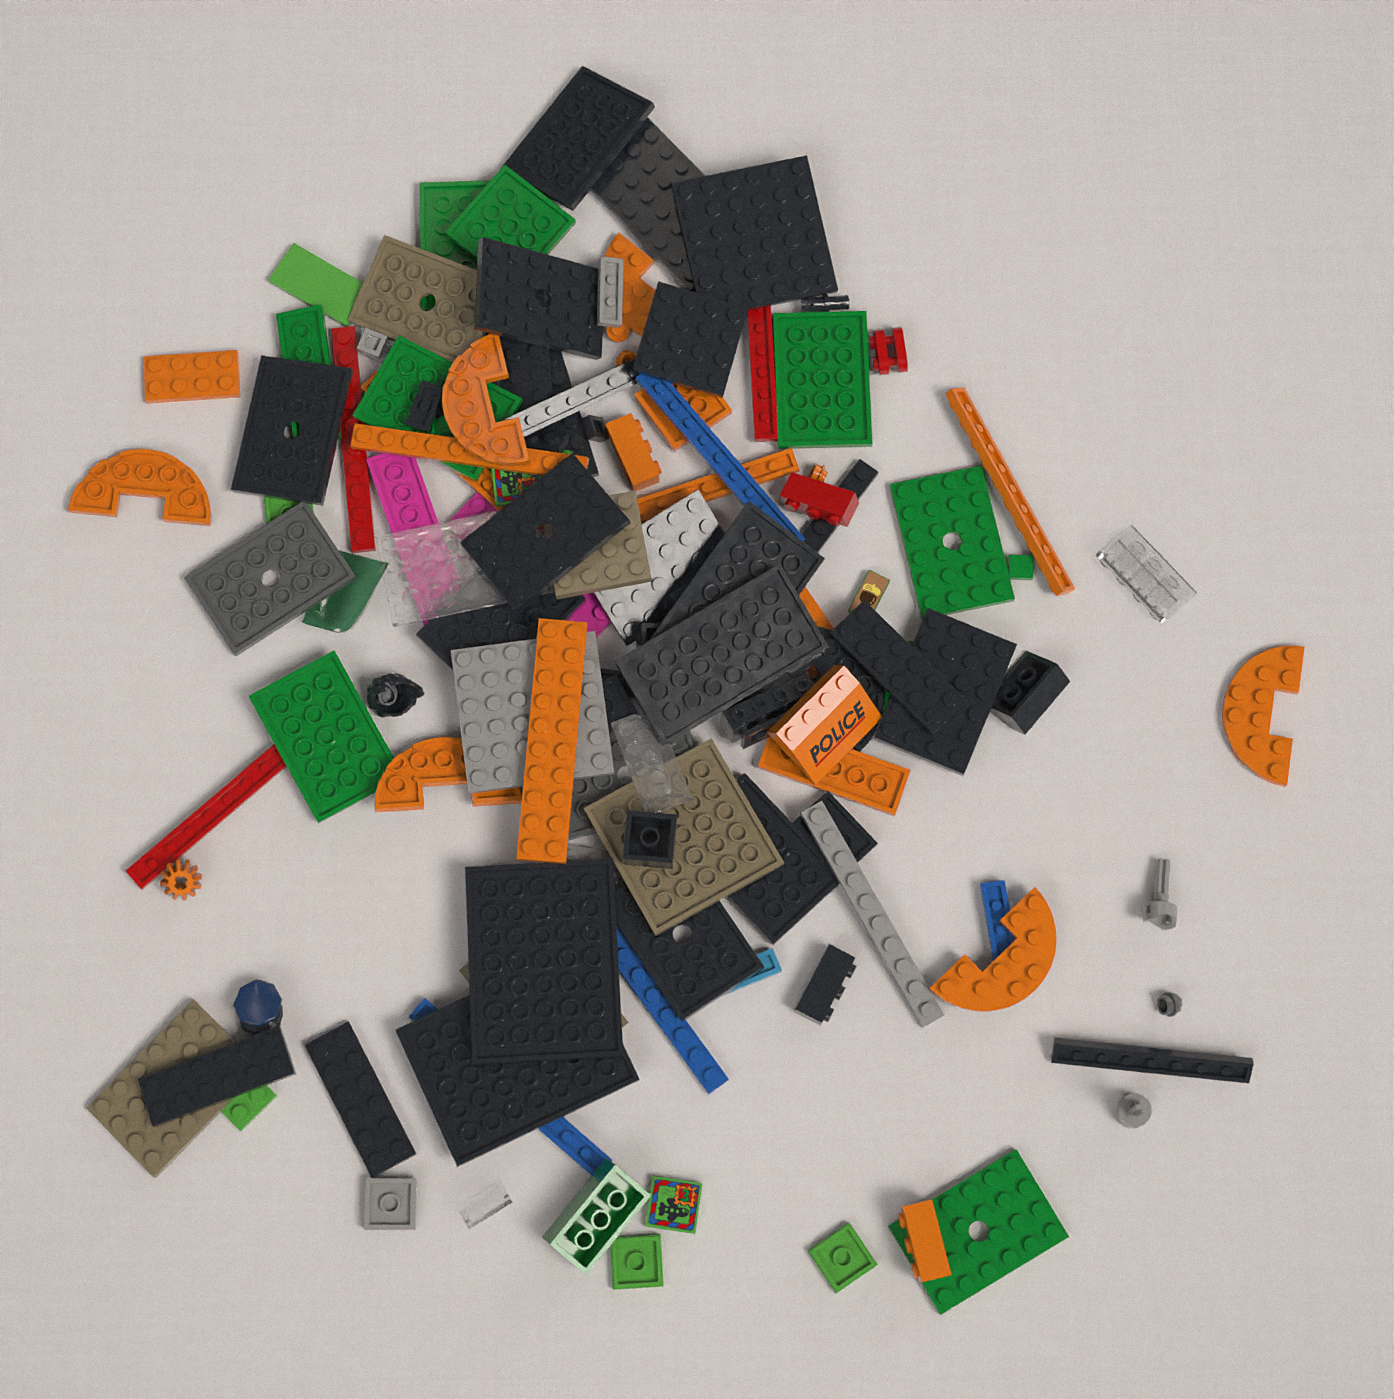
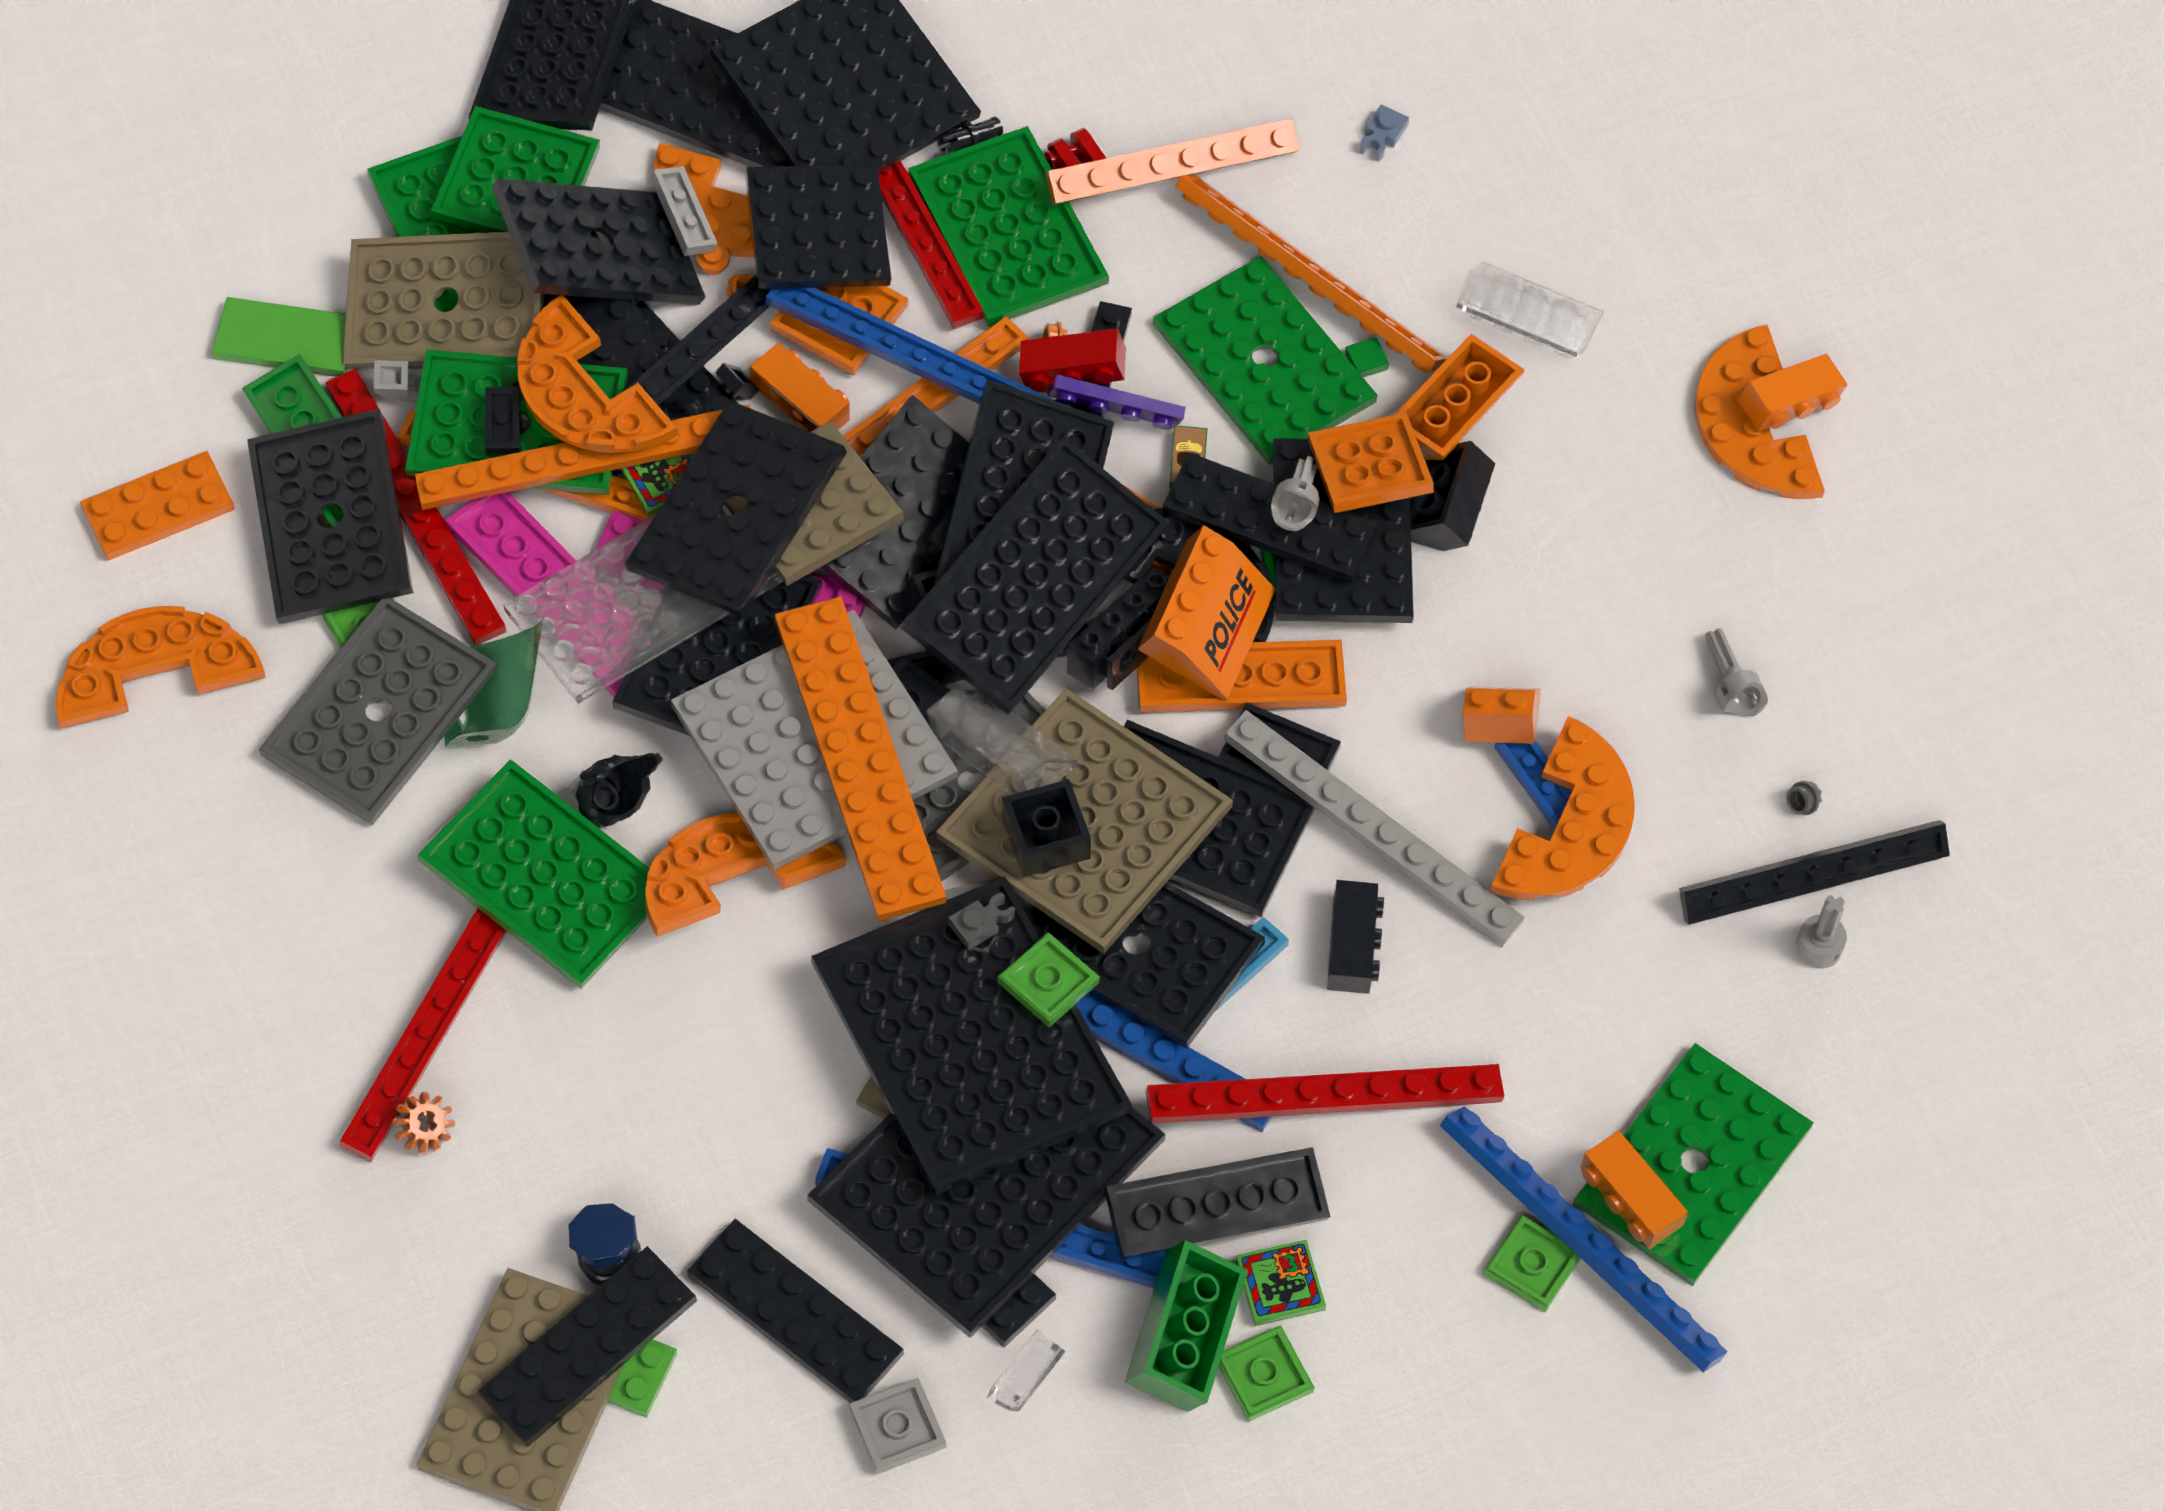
camera: 25 degrees left, 15 degrees down
(501, 1157) = (1020, 1310): none -> black plate
(578, 886) = (978, 923): none -> dark grey plate
(607, 945) = (1048, 979): none -> bright green tile
(653, 1138) = (1217, 1202): none -> black plate
(757, 1089) = (1324, 1093): none -> red plate
(825, 536) = (1105, 399): none -> dark purple plate
(881, 1257) = (1584, 1239): none -> blue plate
(918, 666) = (1296, 498): none -> light grey piece
(951, 374) = (1172, 161): none -> plate
(980, 656) = (1370, 462): none -> orange plate
(992, 864) = (1501, 714): none -> orange slope
(1061, 626) = (1458, 396): none -> orange slope
(1107, 400) = (1384, 128): none -> sand blue plate
(1296, 707) = (1792, 392): none -> orange brick

